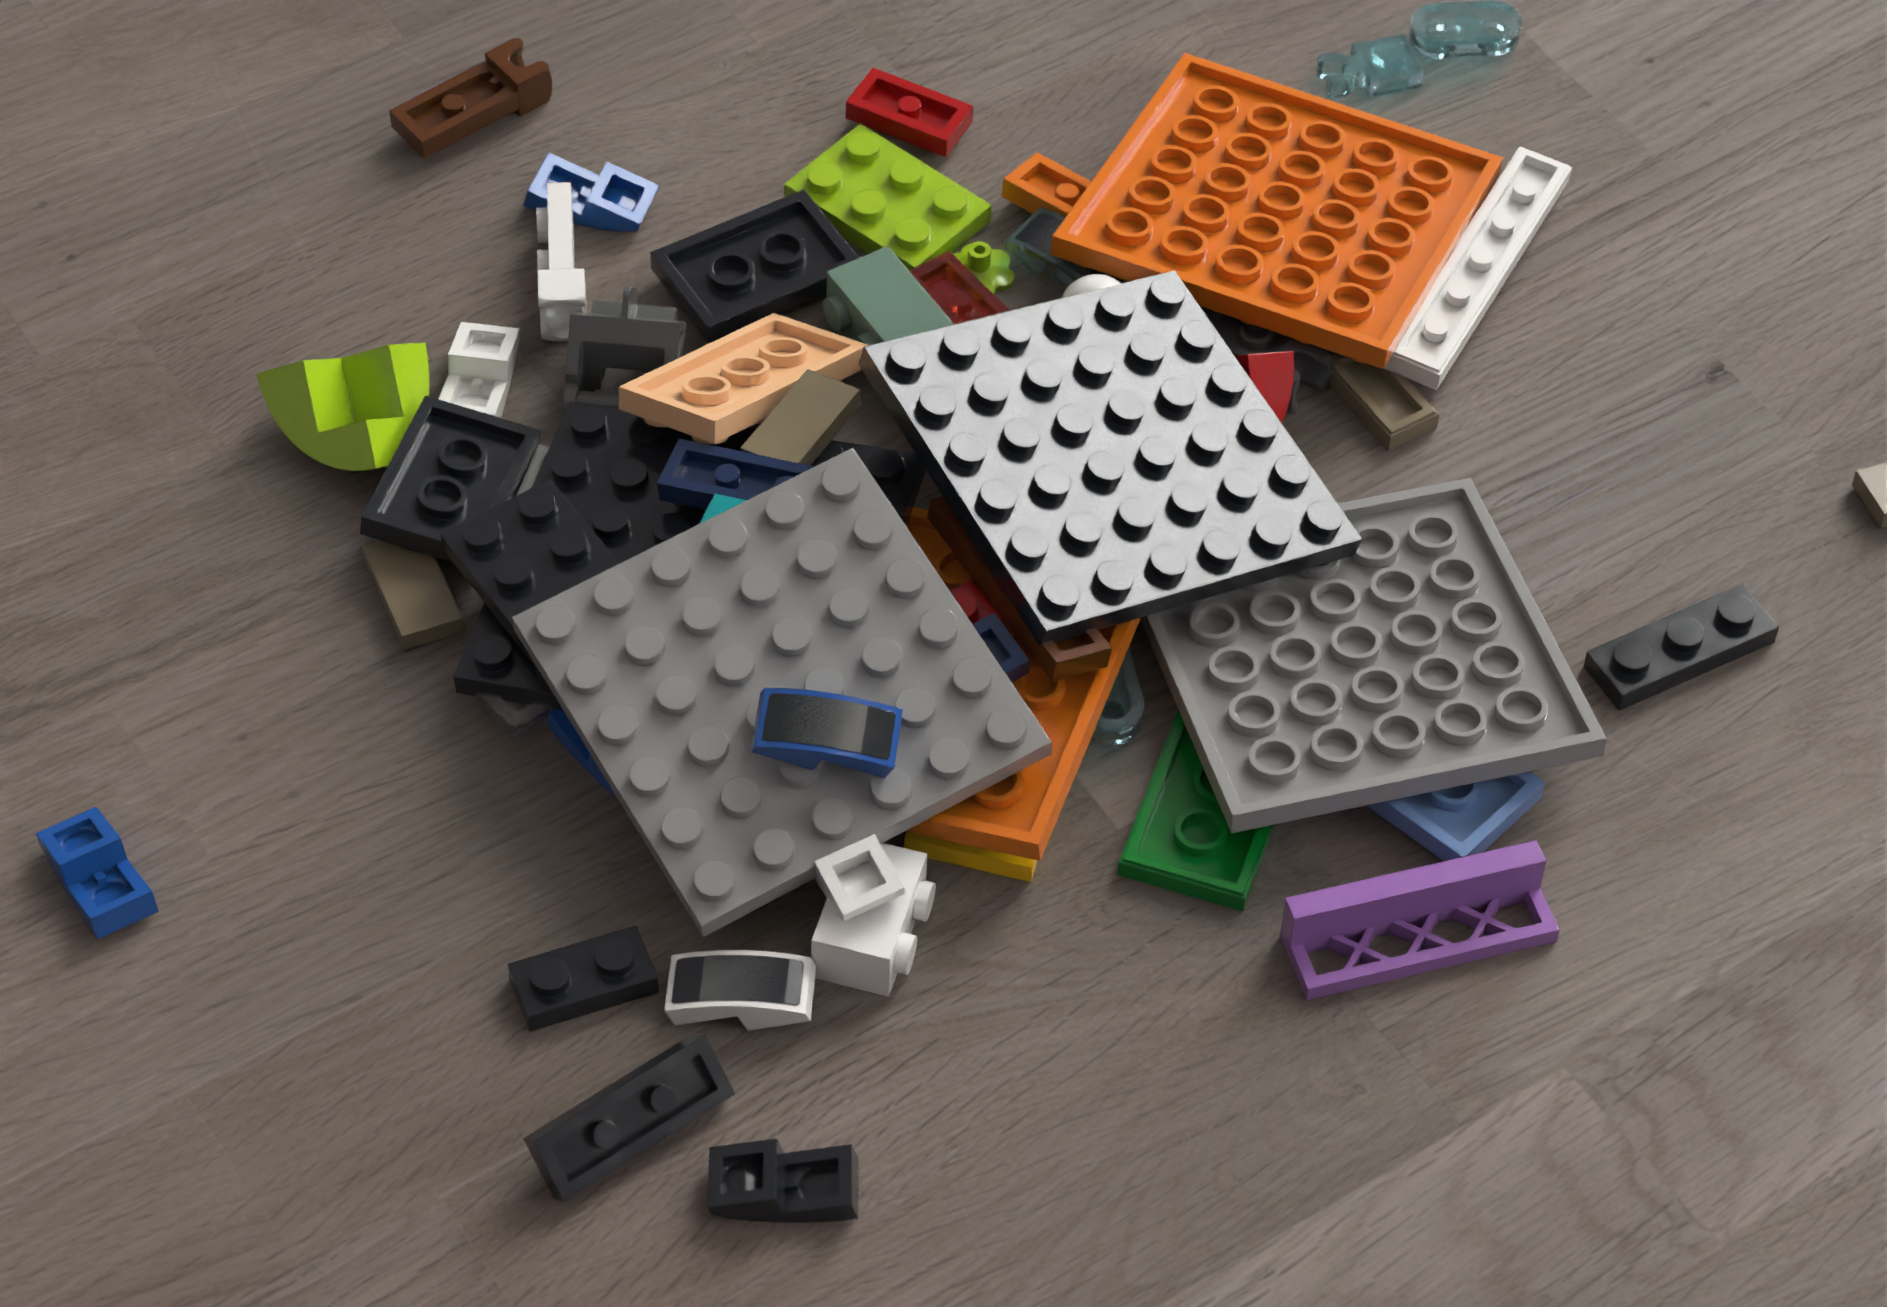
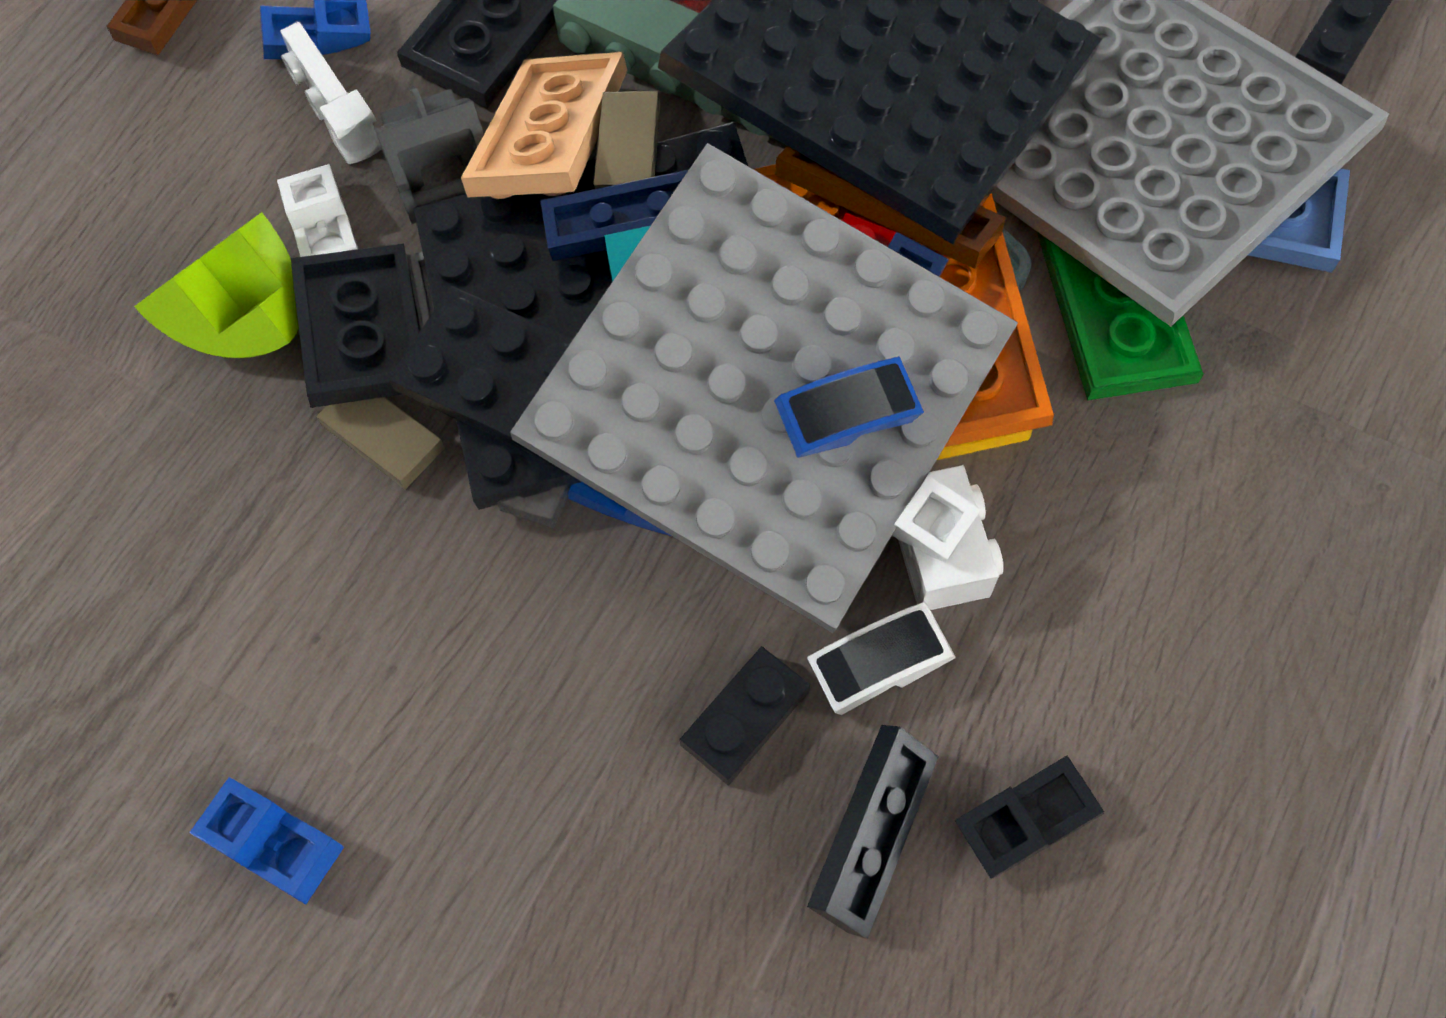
camera: 25 degrees left, 15 degrees up
(1413, 899) = (1330, 311): medium lavender fence -> none

